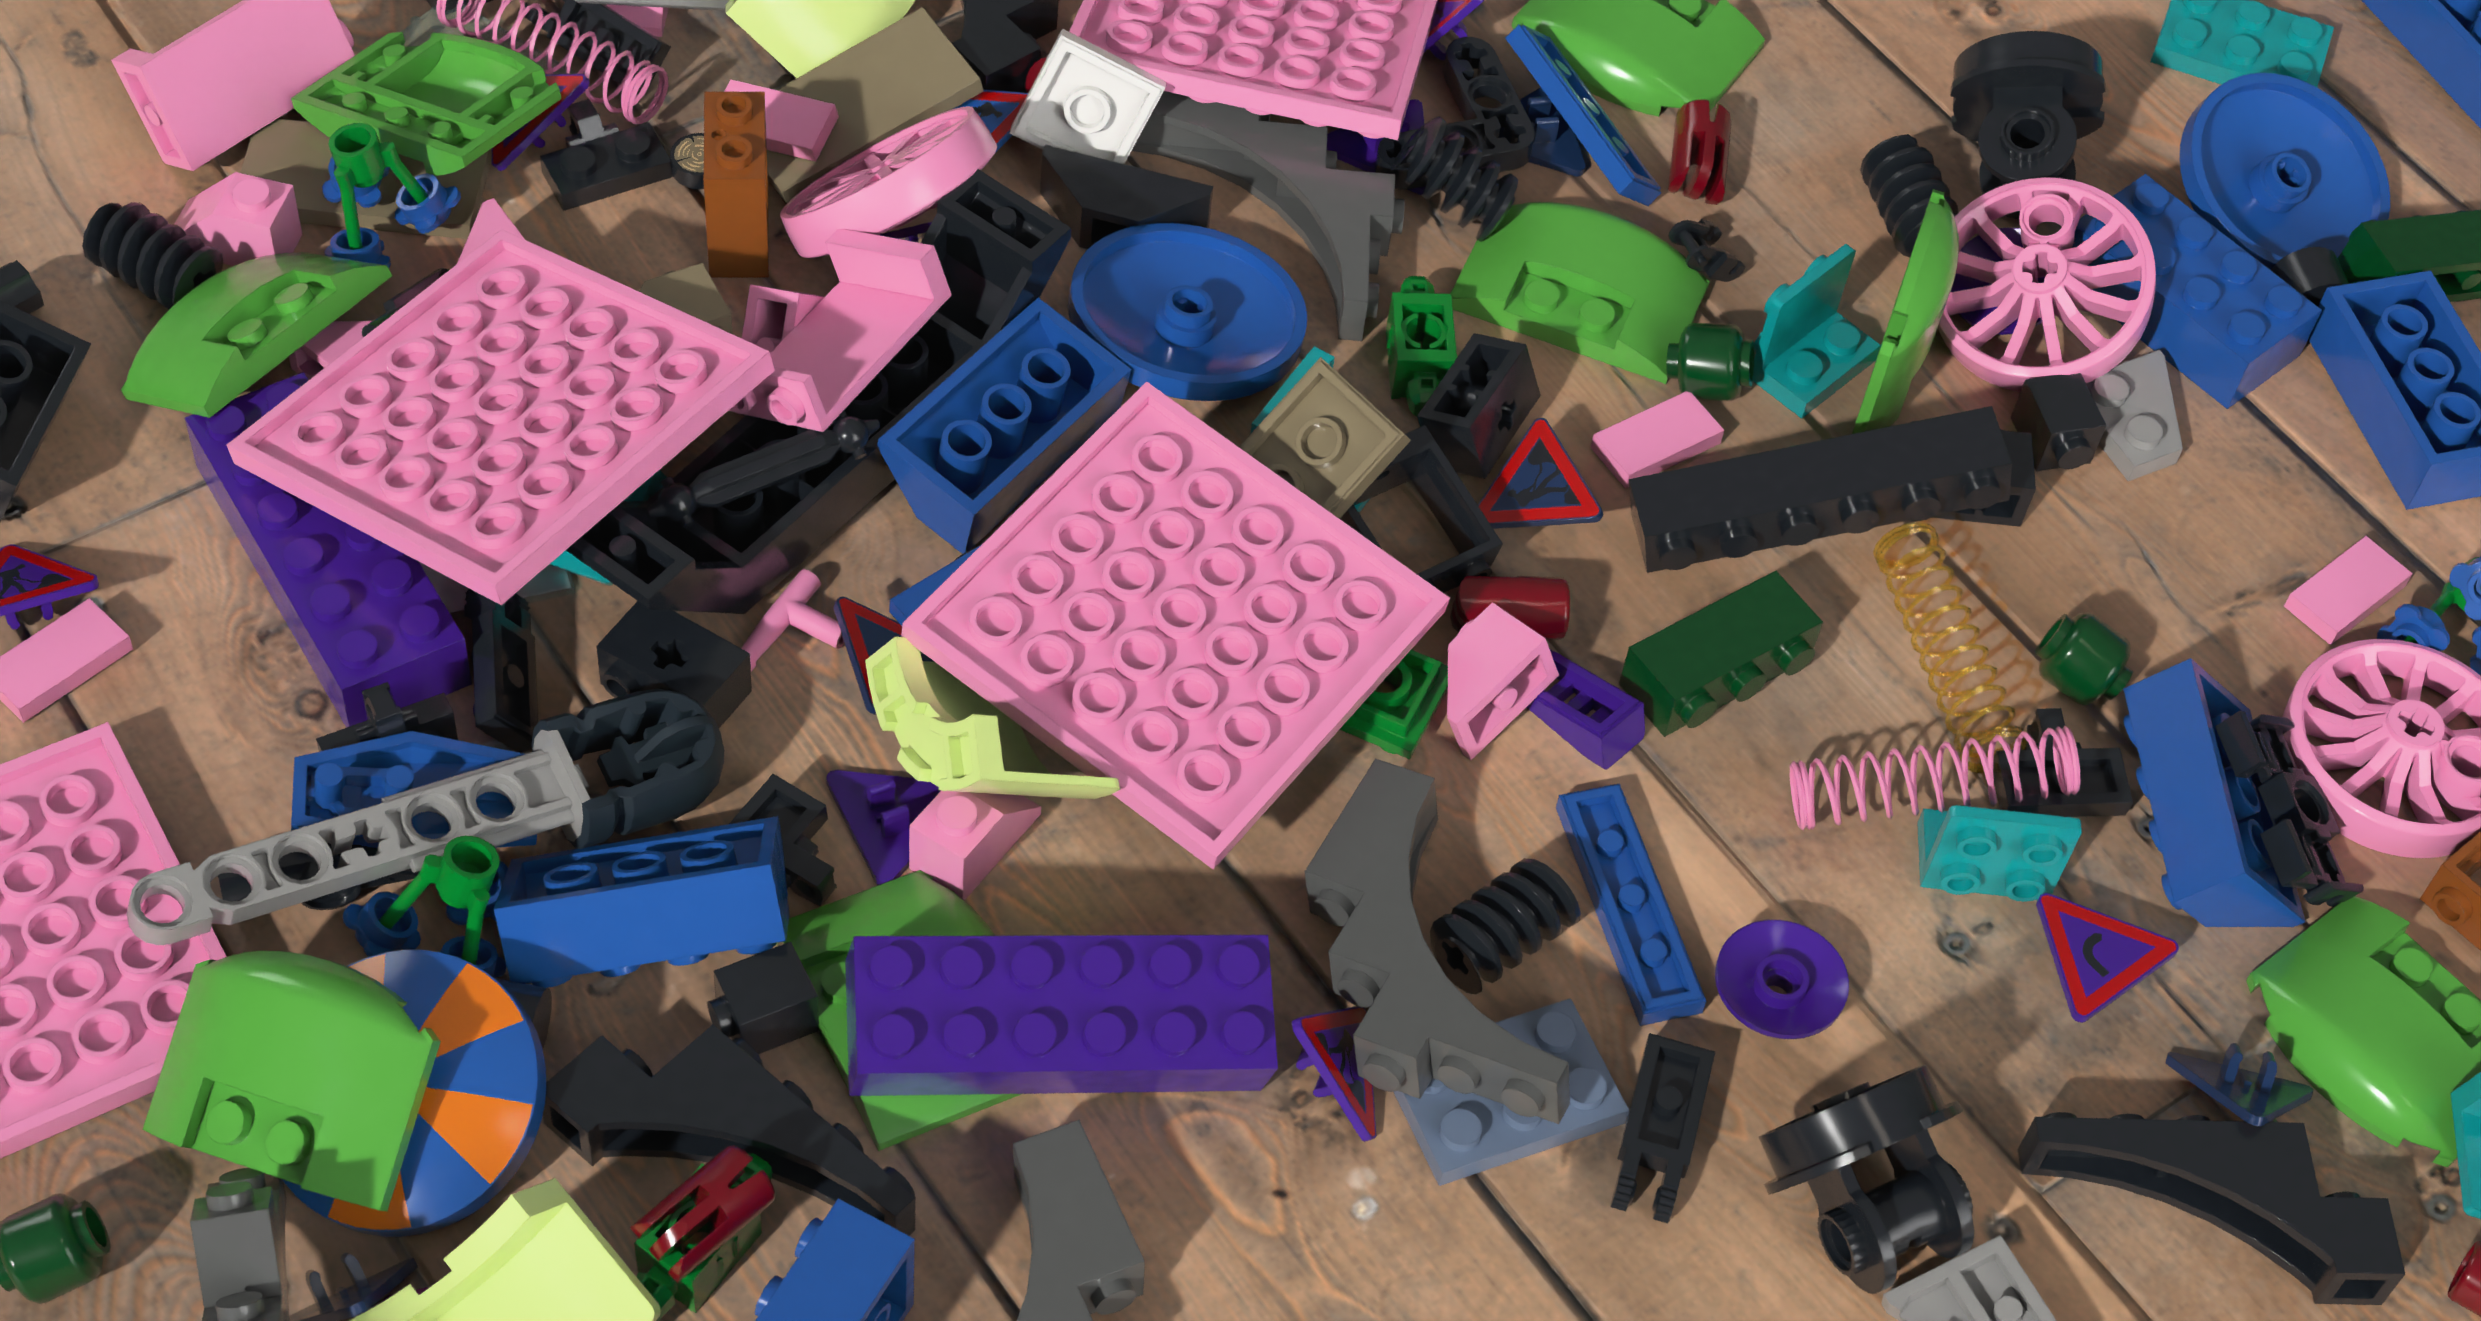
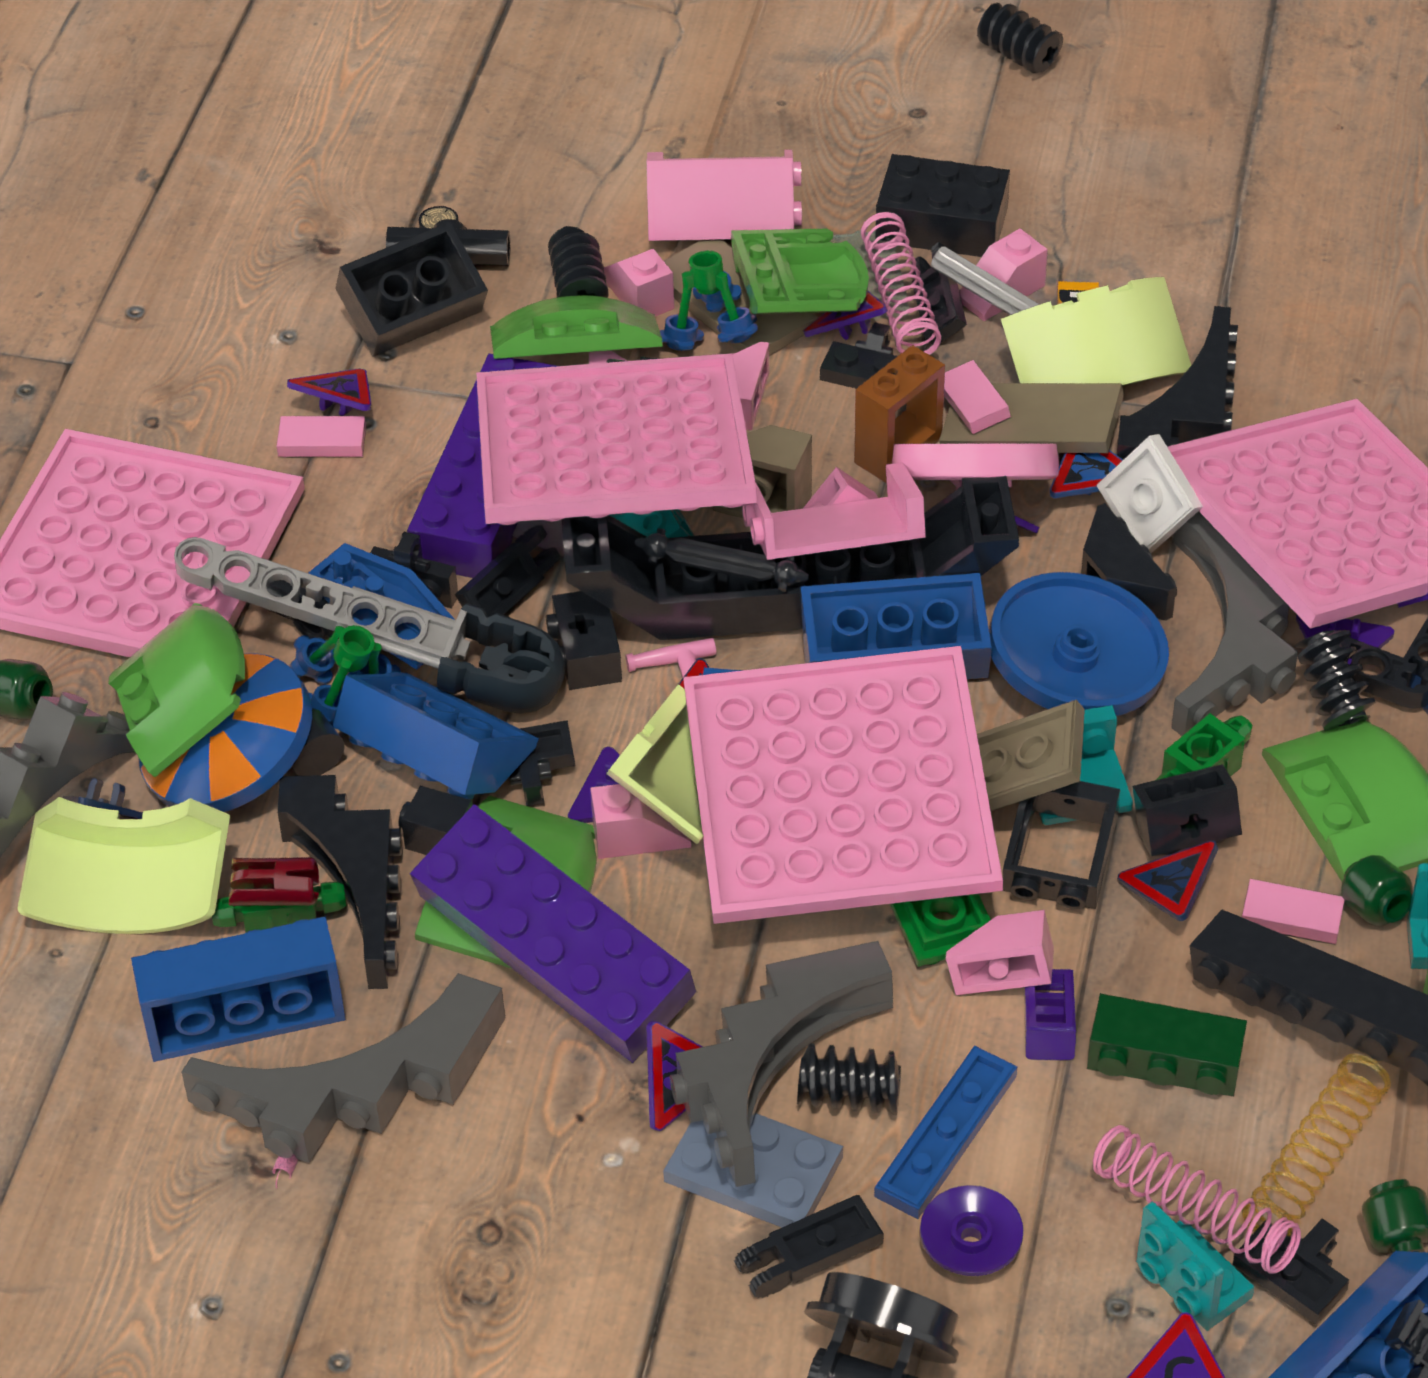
camera: 55 degrees right, 5 degrees down
(1533, 600) = (1076, 931): dark red arm -> none

